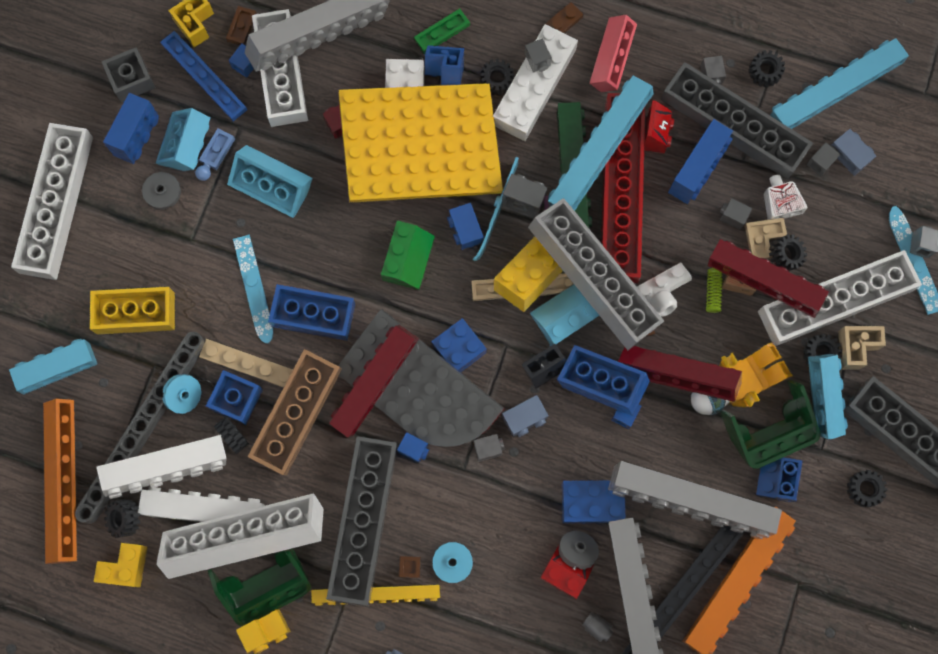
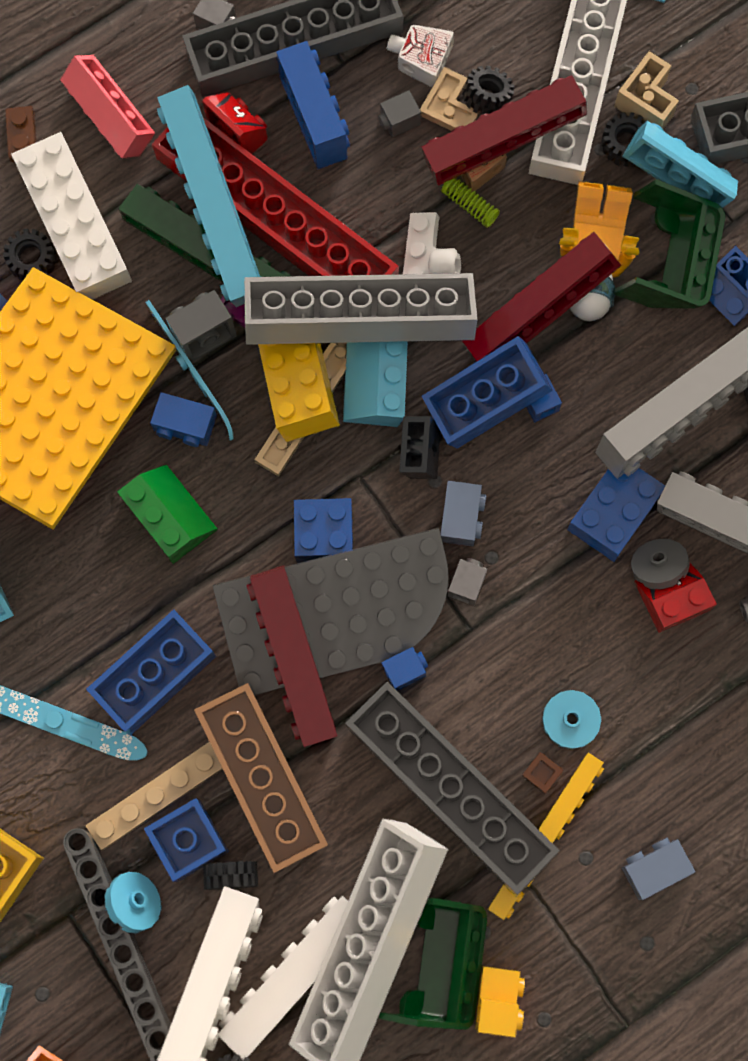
camera: 50 degrees left, 0 degrees up
(538, 55) = (46, 186): dark grey brick -> none

